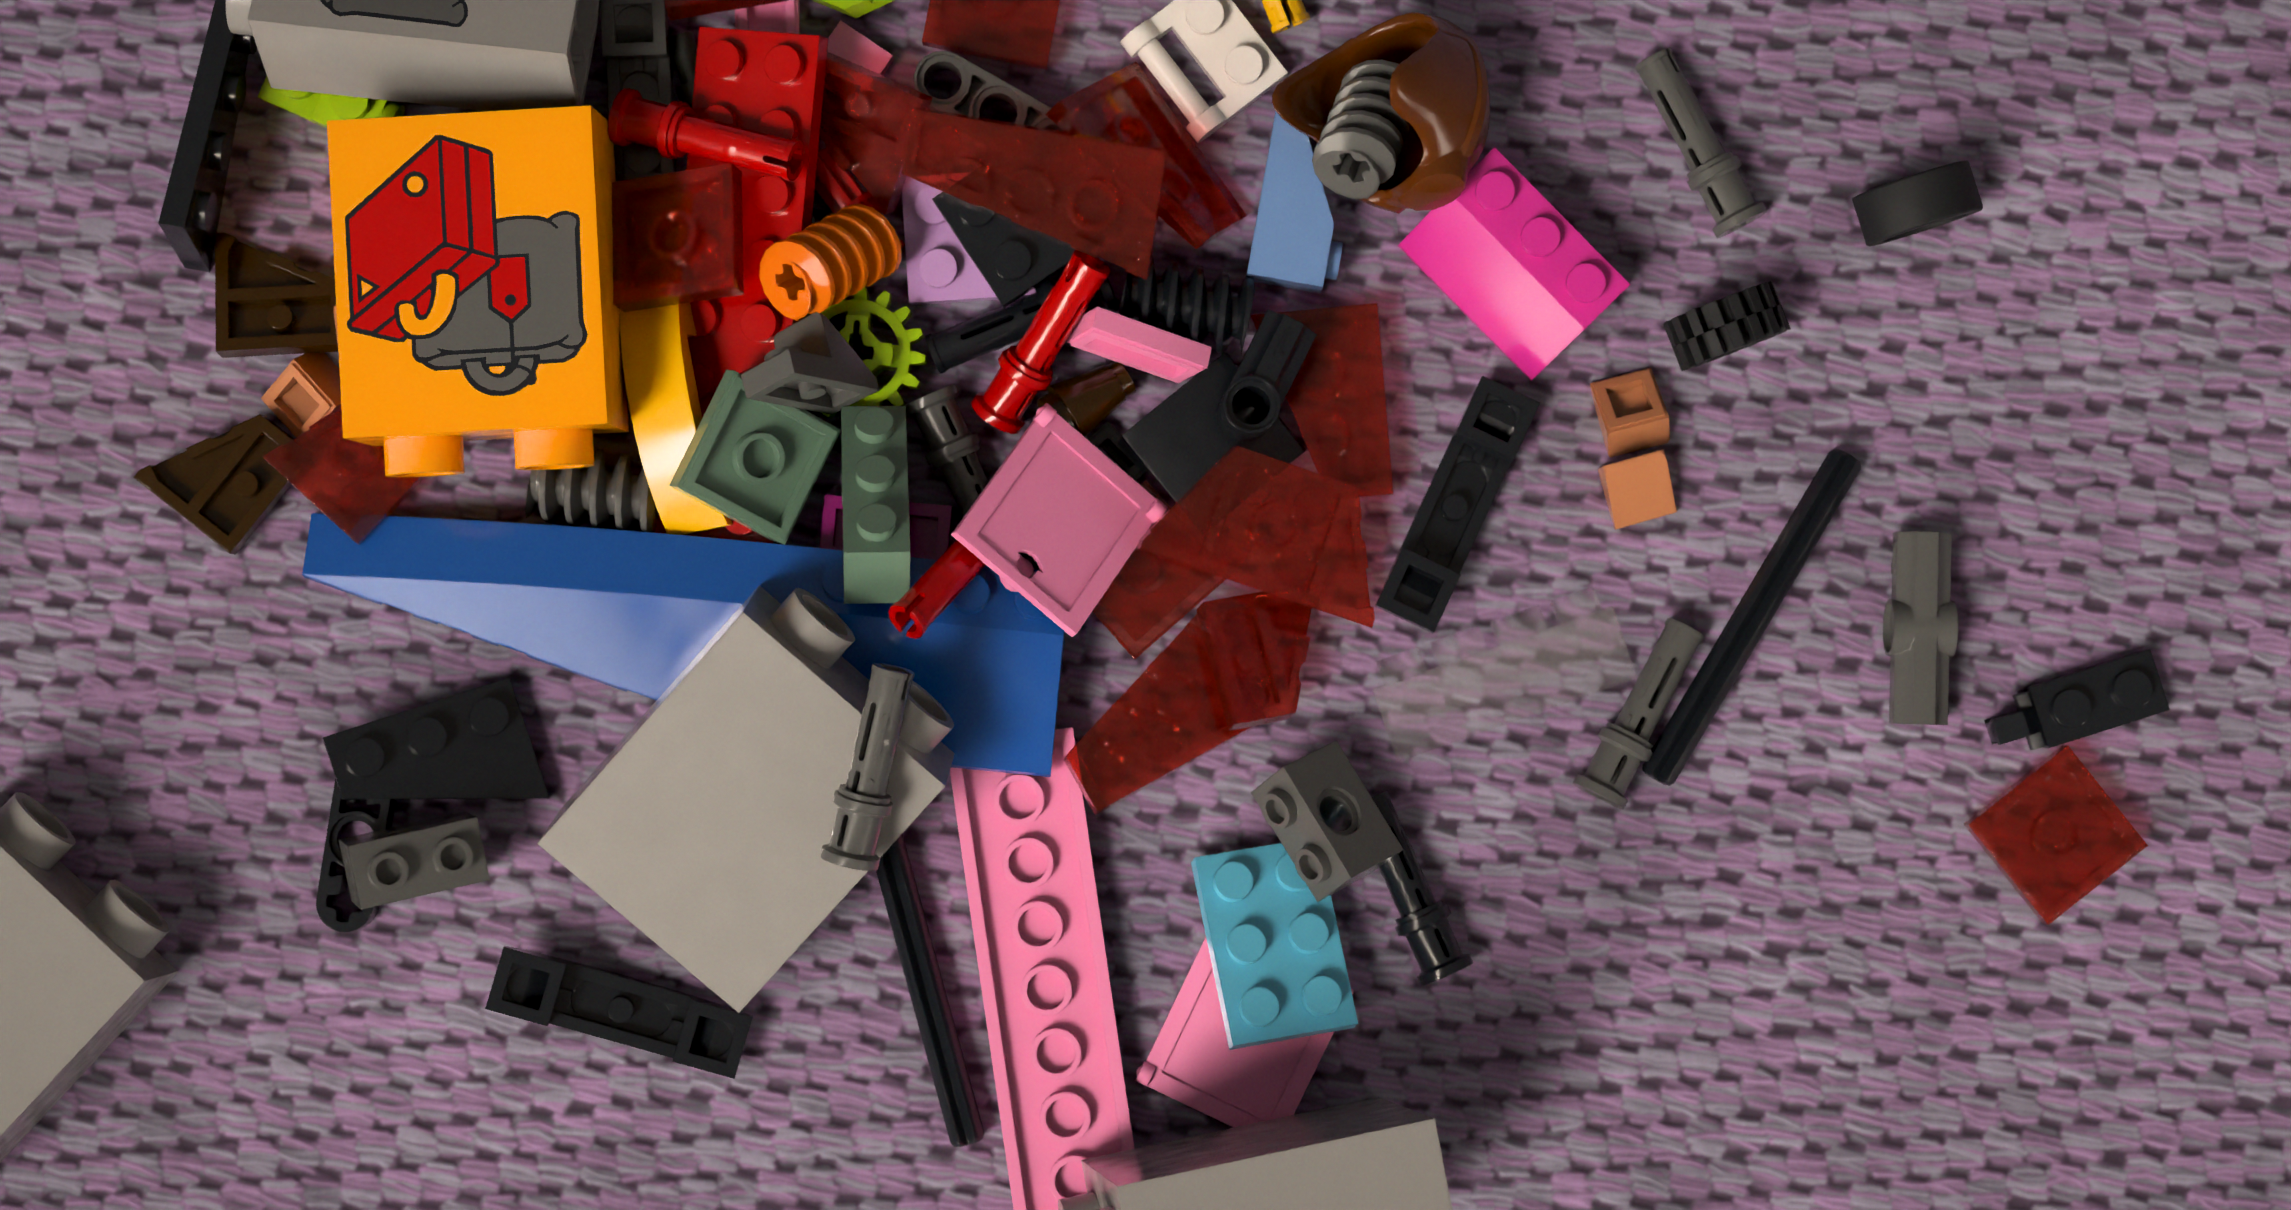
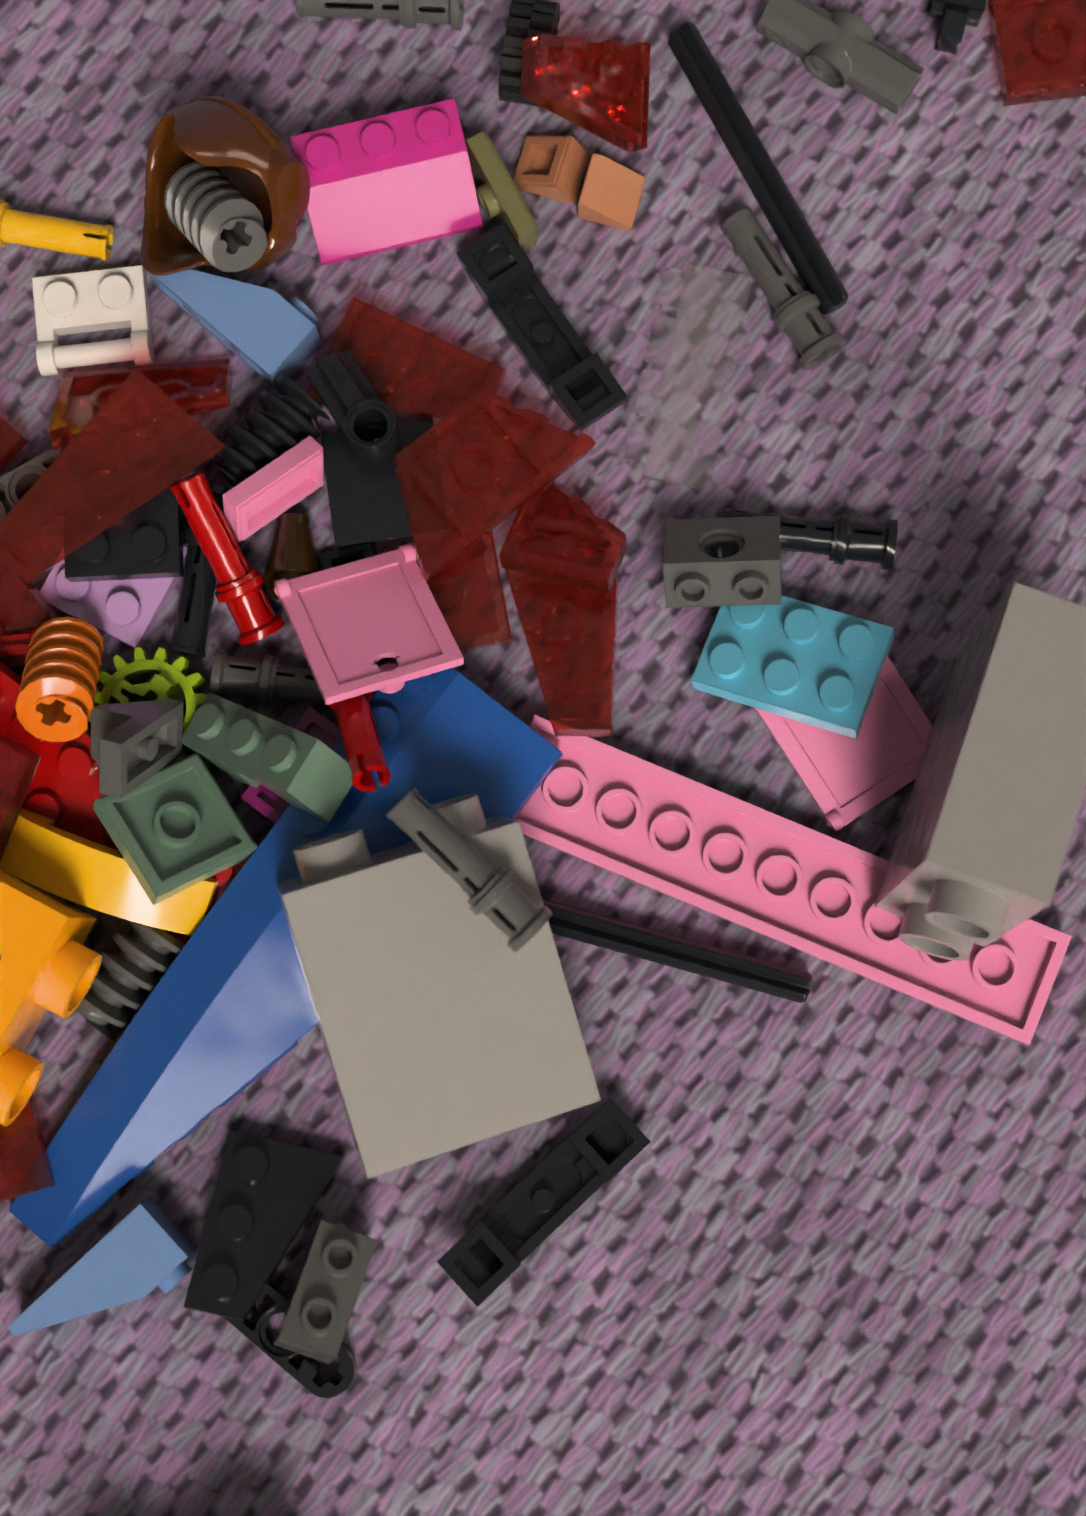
camera: 50 degrees left, 5 degrees down
(320, 654) = (121, 1268): none -> medium blue slope
(1568, 380) = (498, 191): none -> olive plate
(1726, 411) = (591, 85): none -> clear red wing

